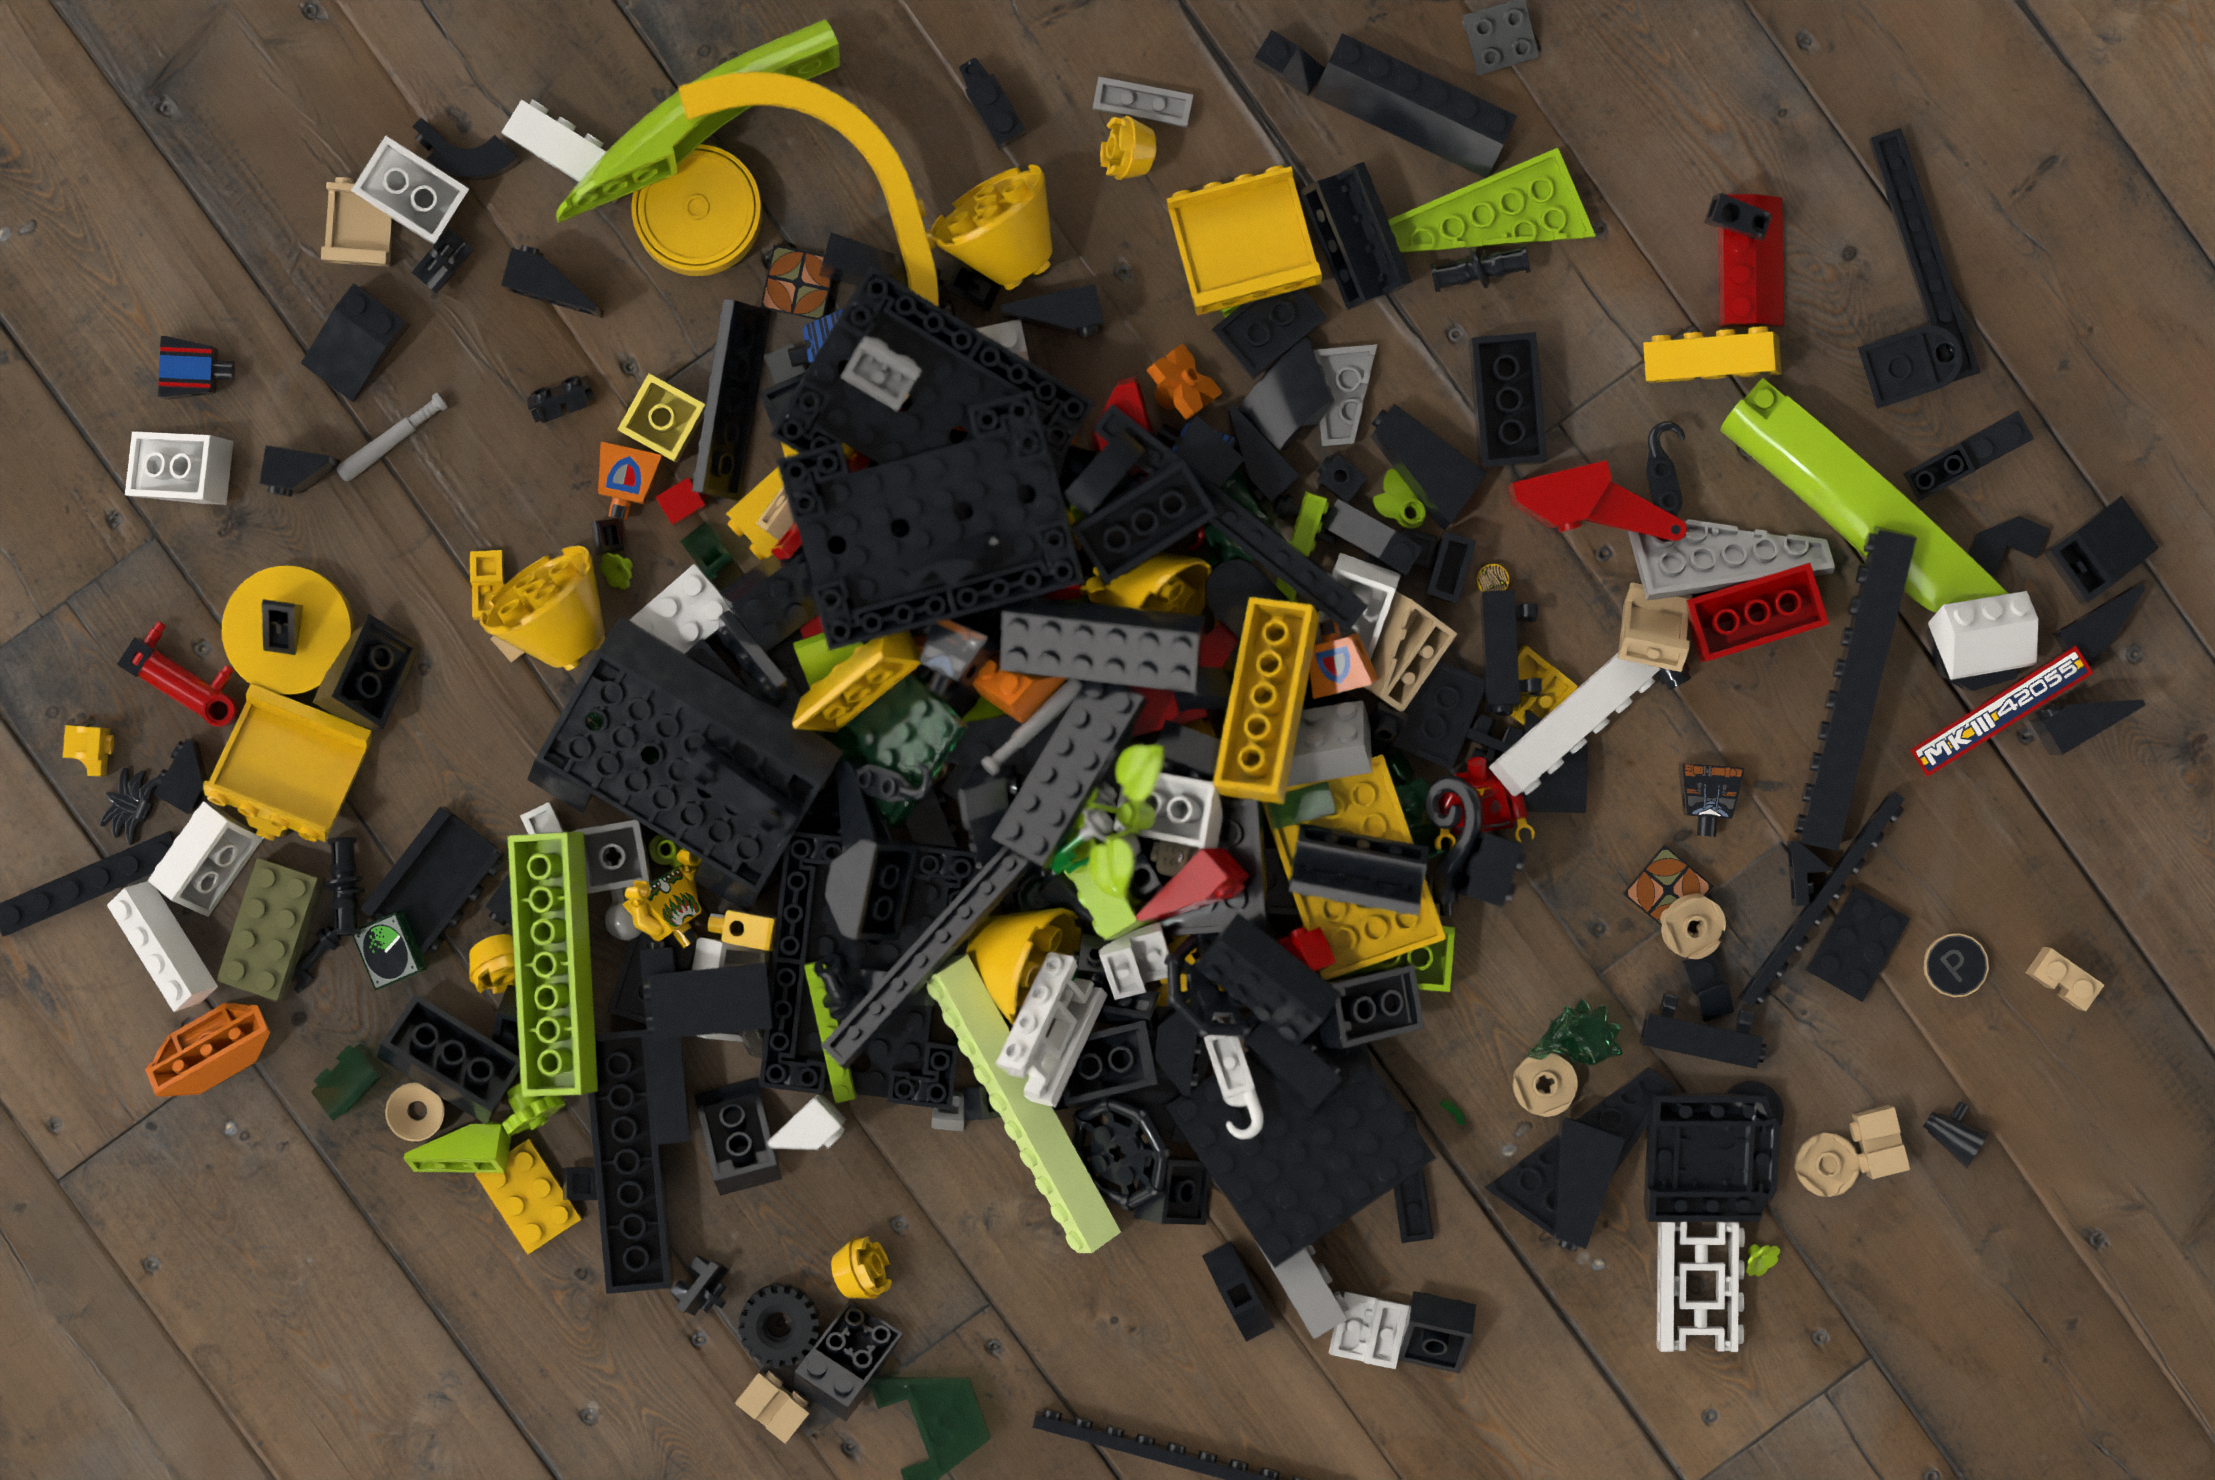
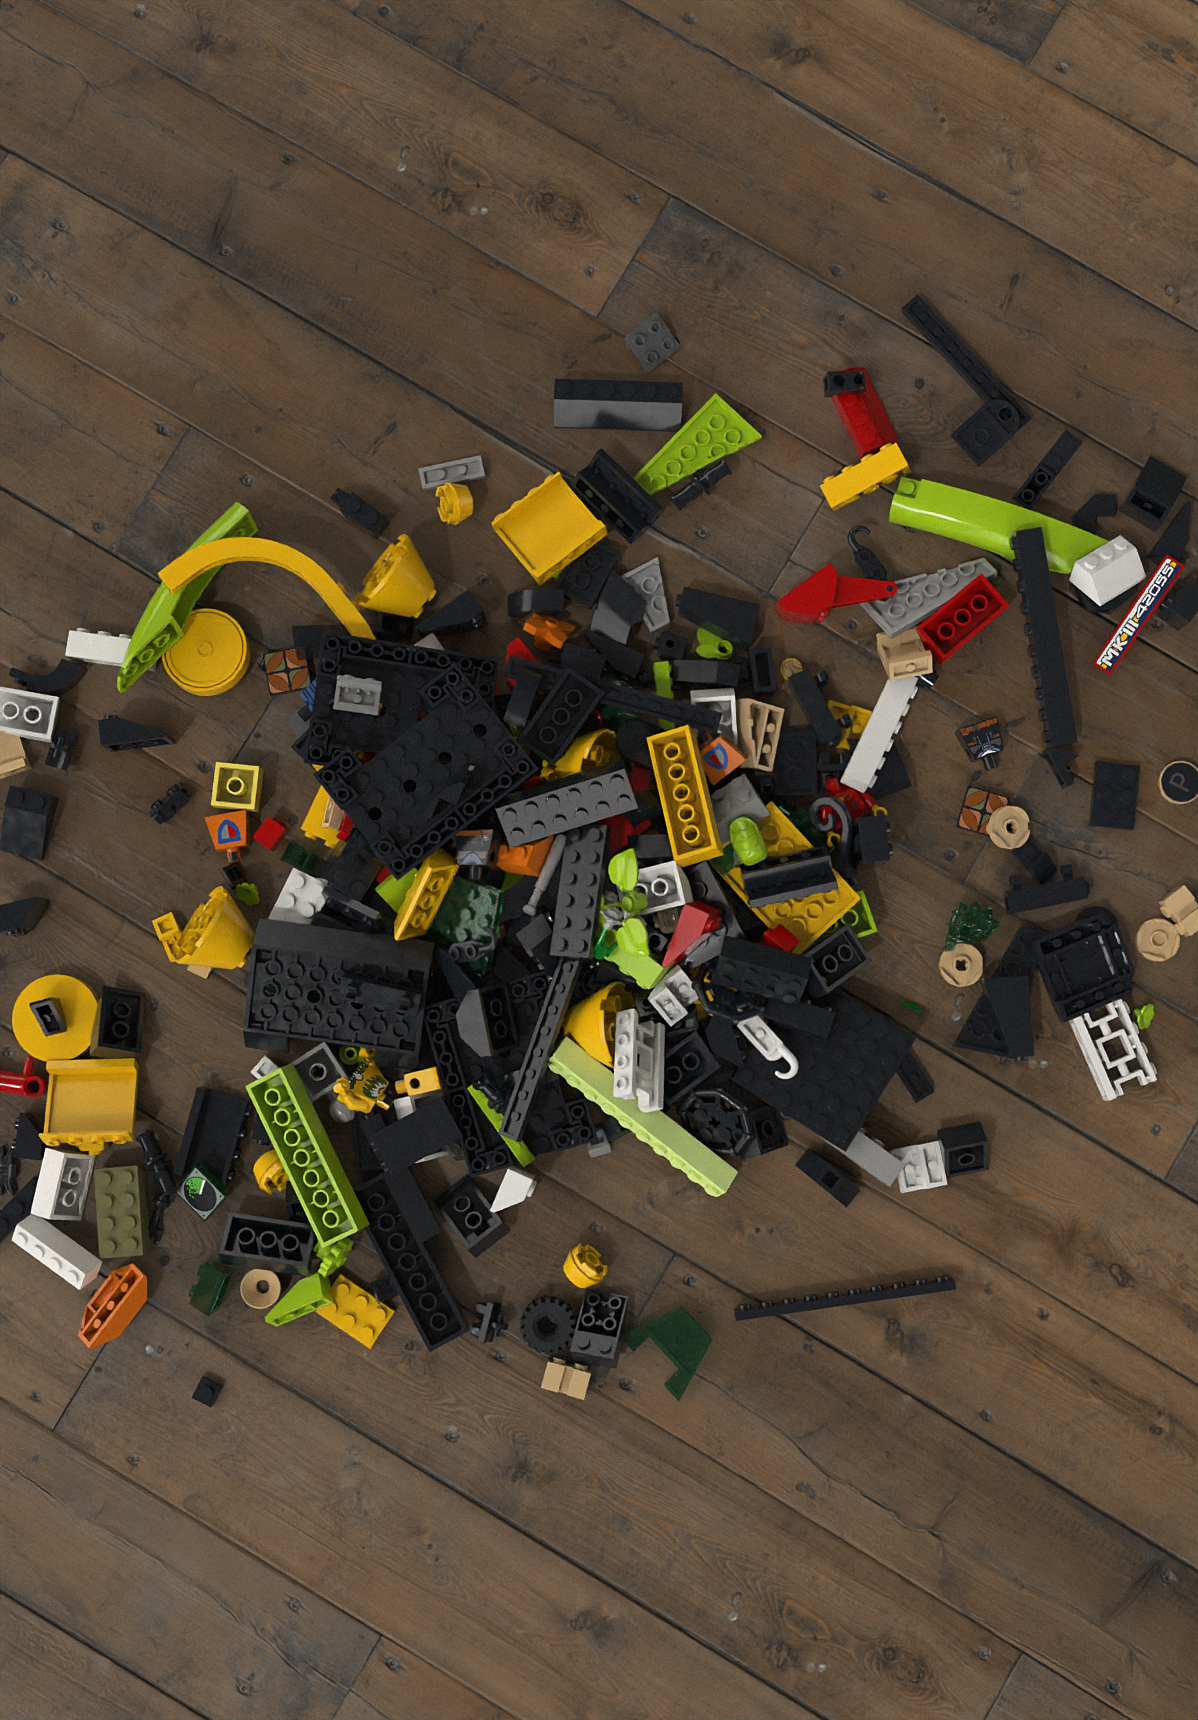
camera: 20 degrees left, 5 degrees down
(285, 1218) = (207, 1391): none -> black plate
(382, 444) = (72, 875): light grey piece -> none
(731, 400) = (275, 757): black plate -> none
(1180, 337) = (535, 601): none -> black brick
(1288, 63) = (530, 412): black slope -> none
(1325, 797) = (747, 841): none -> lime piece
(1507, 400) = (752, 555): black brick -> none
(1830, 888) = (1082, 769): black plate -> none

